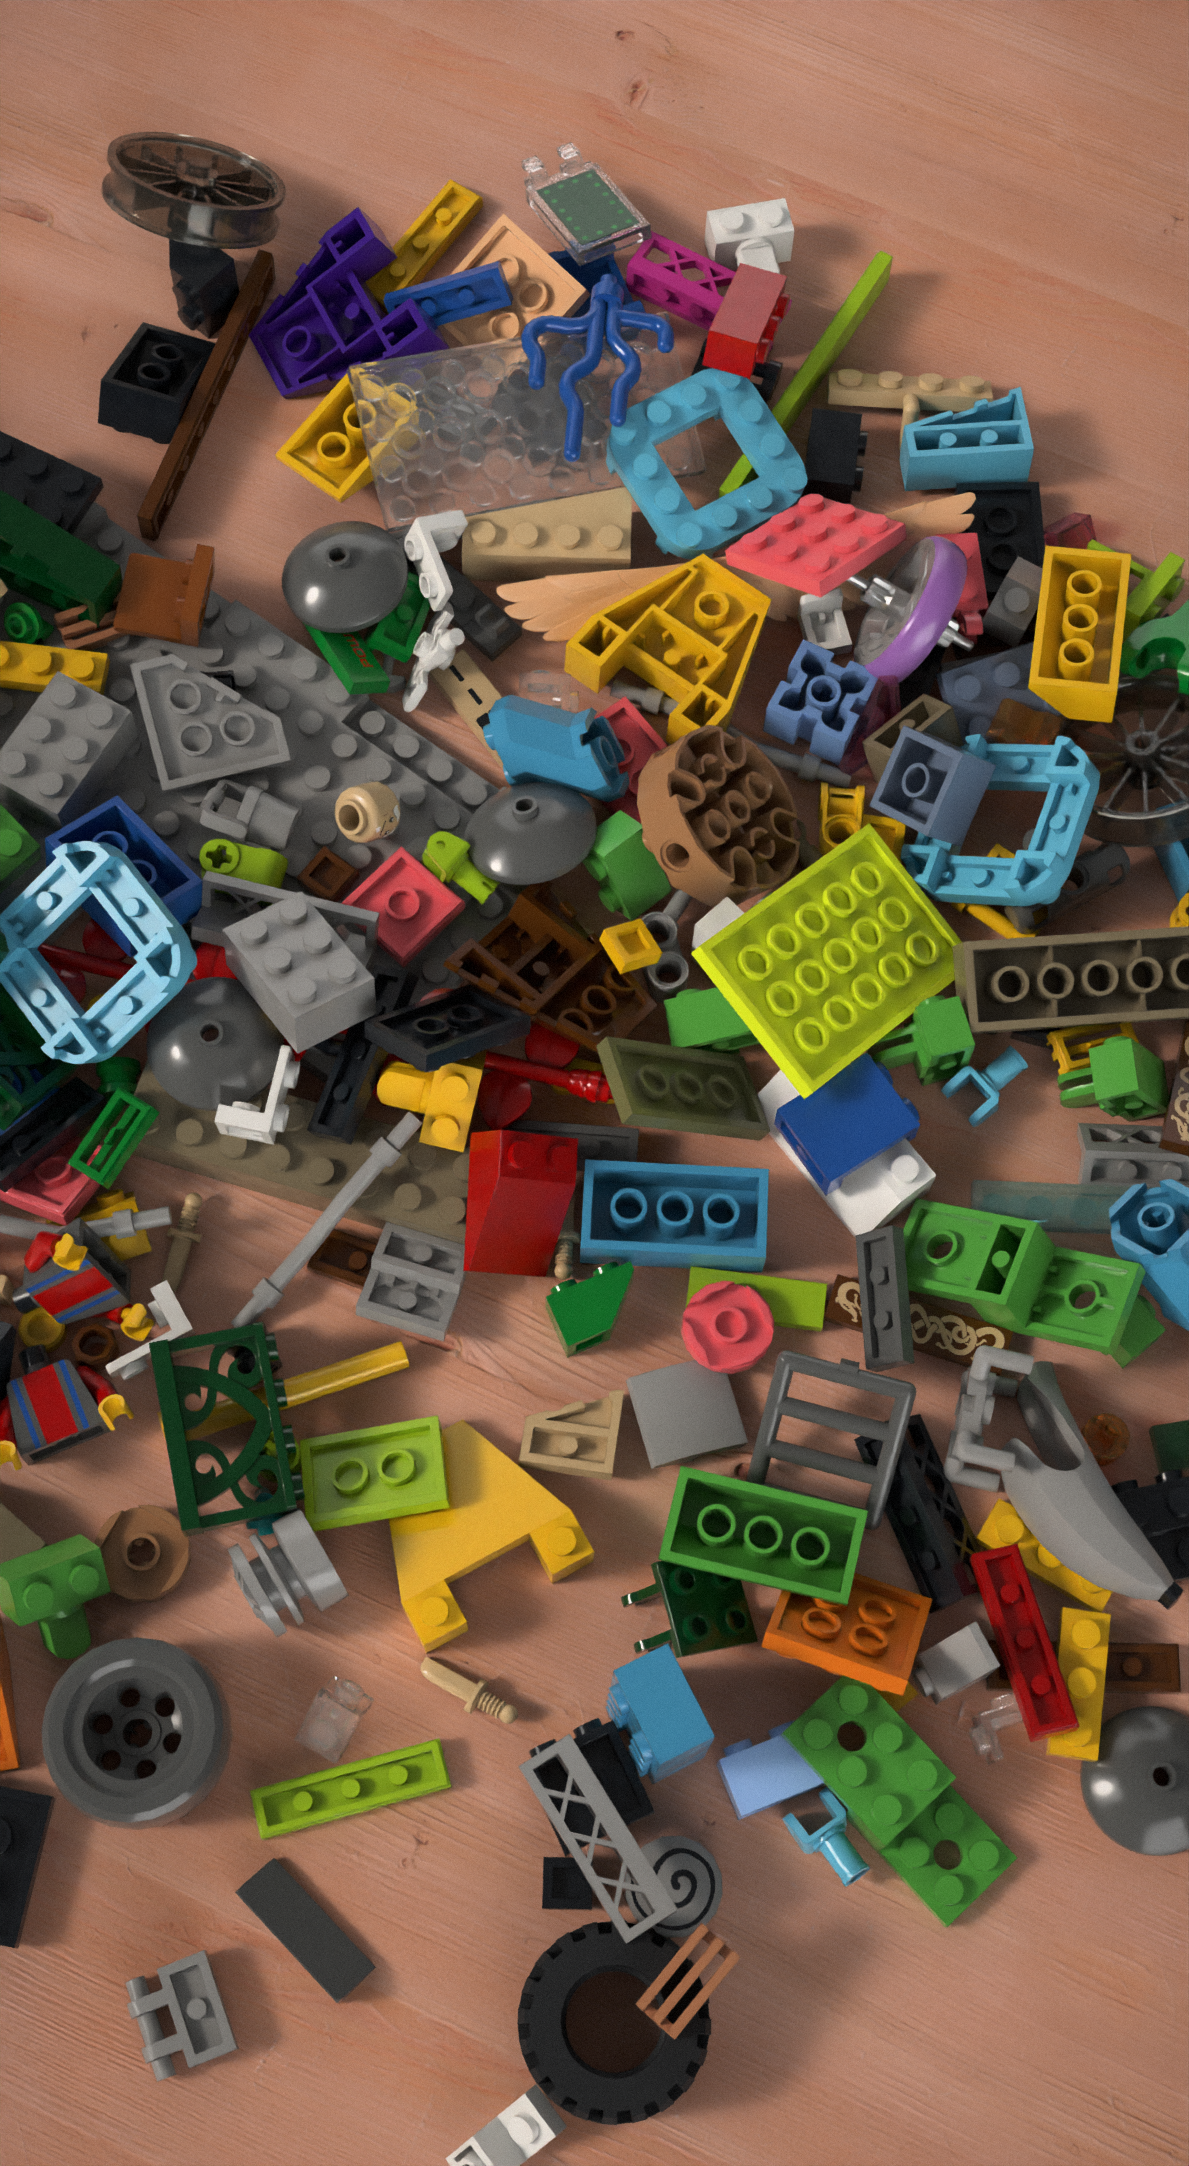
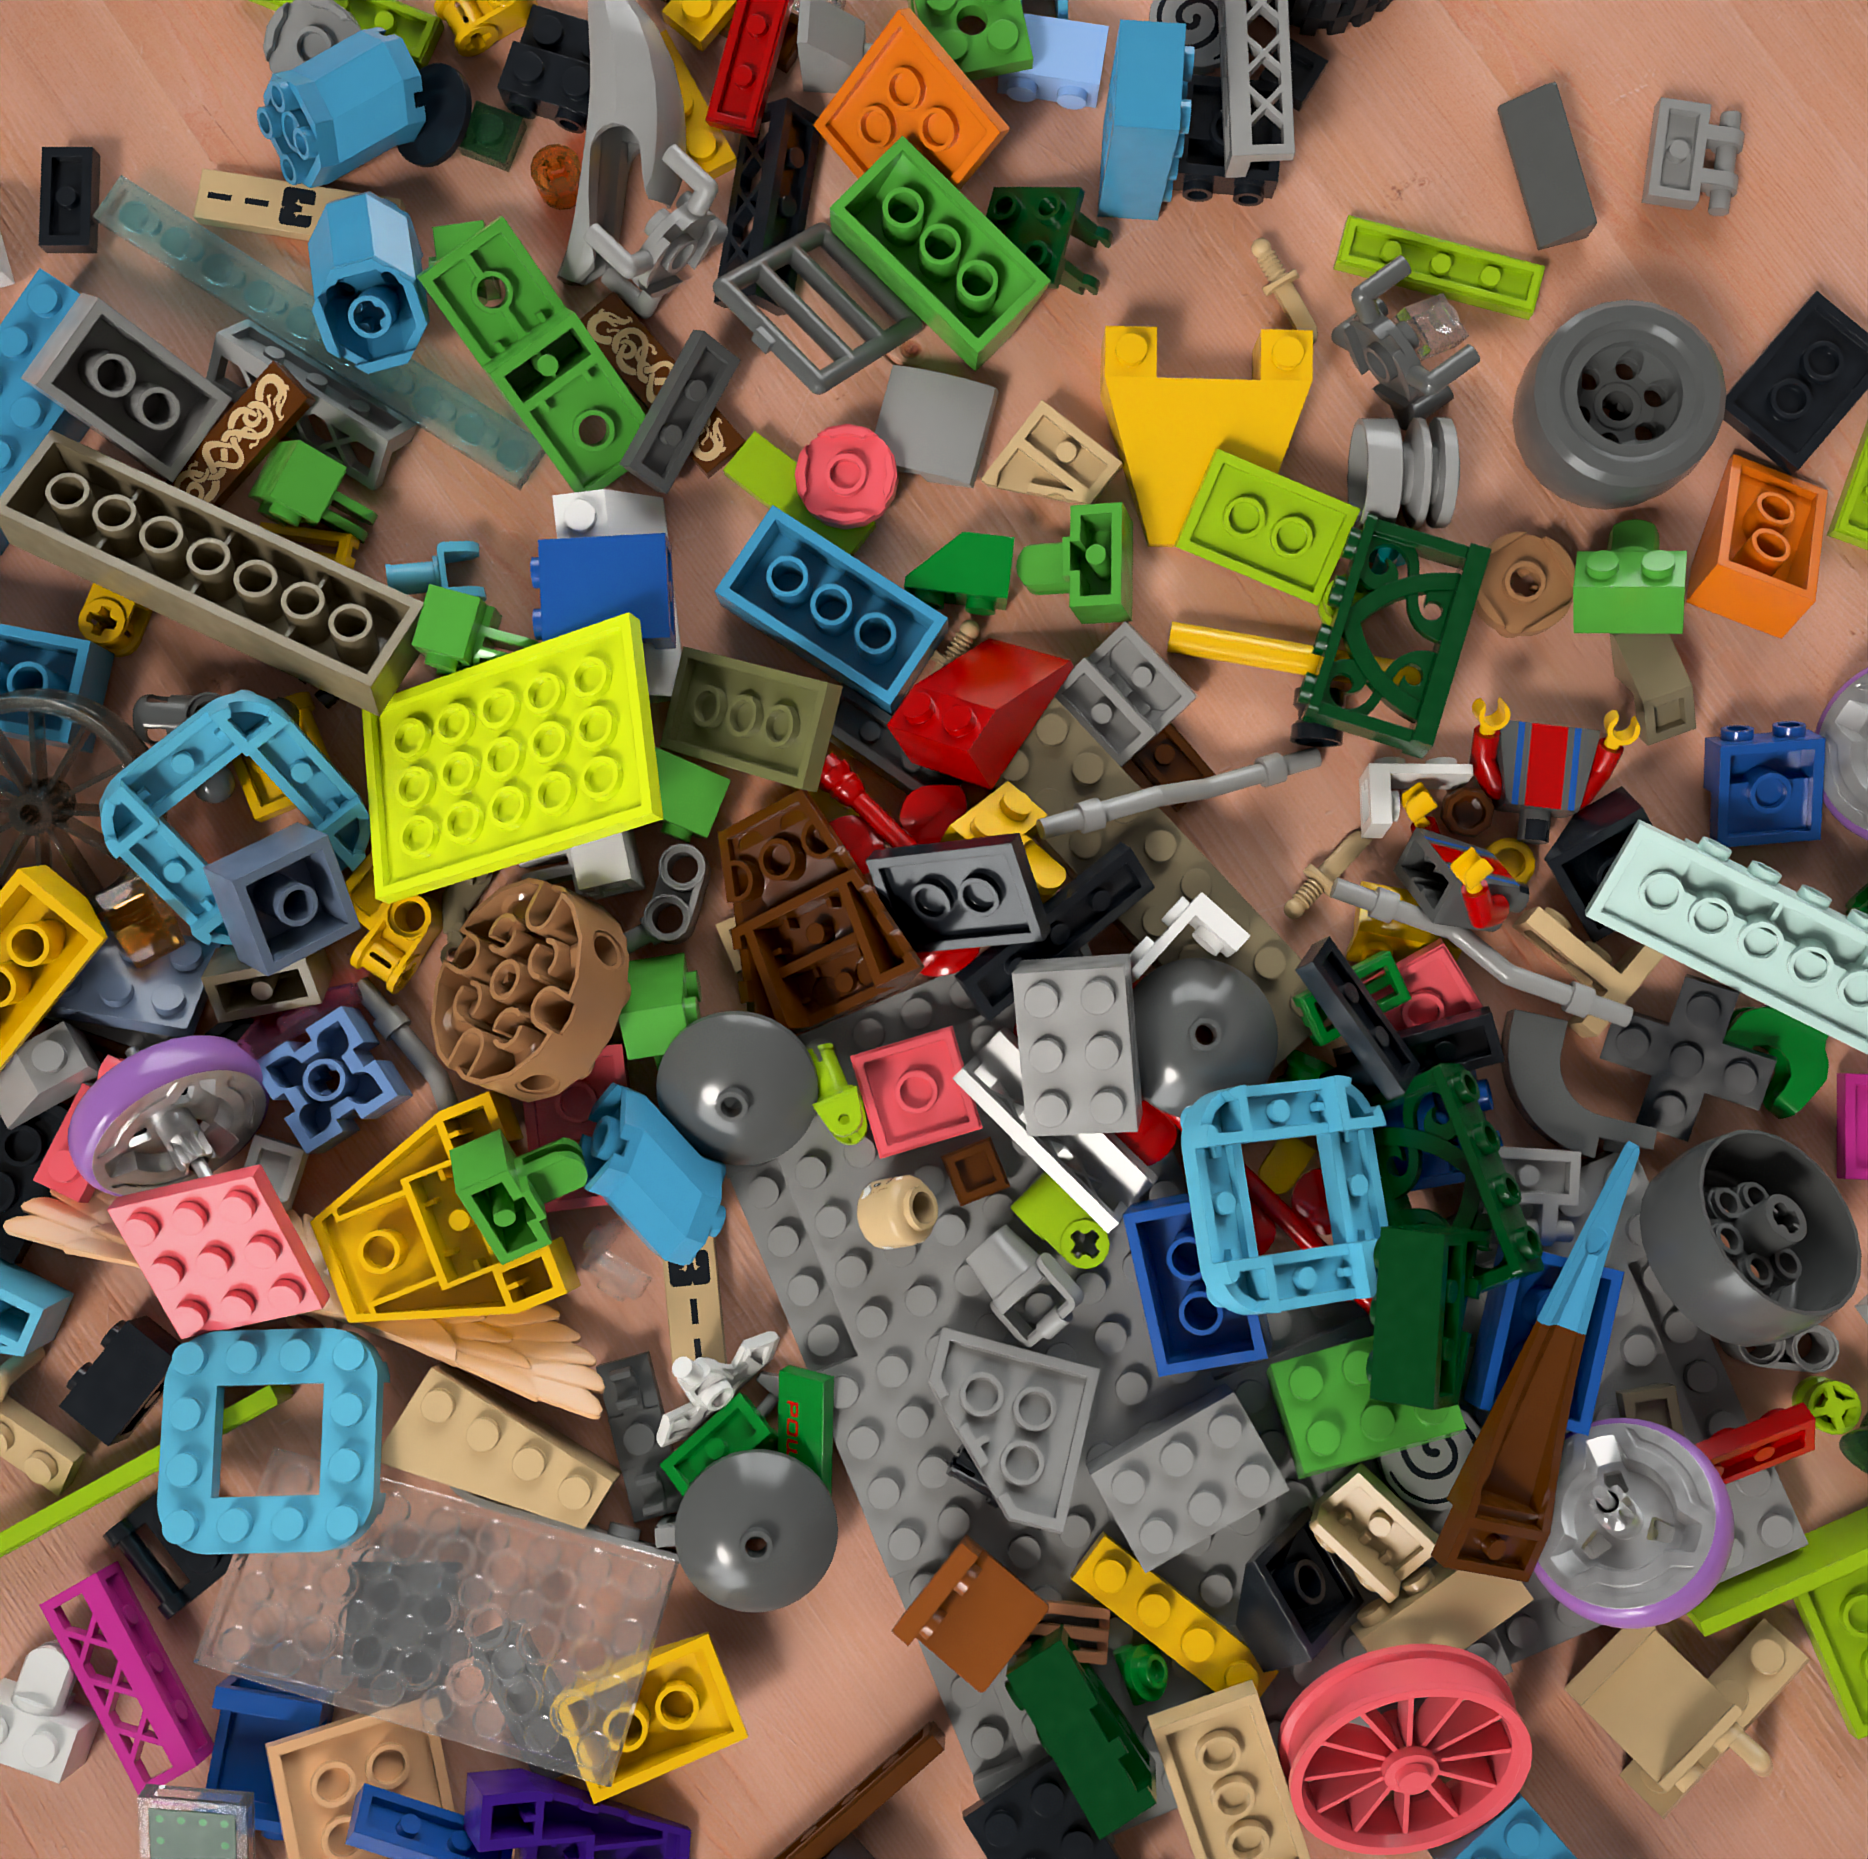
camera: 145 degrees left, 15 degrees up
(88, 1106) = (1379, 1049): none -> black piece
(311, 1640) = (1390, 351): none -> dark grey plate
(422, 546) = (655, 1512): white bracket -> none
(497, 1364) = (1088, 565): none -> bright green brick
(605, 316) = (270, 1686): blue plant -> none
(630, 946) = (708, 906): yellow plate -> none
(643, 679) = (509, 1191): none -> bright green brick
(746, 321) = (110, 1587): red brick -> none

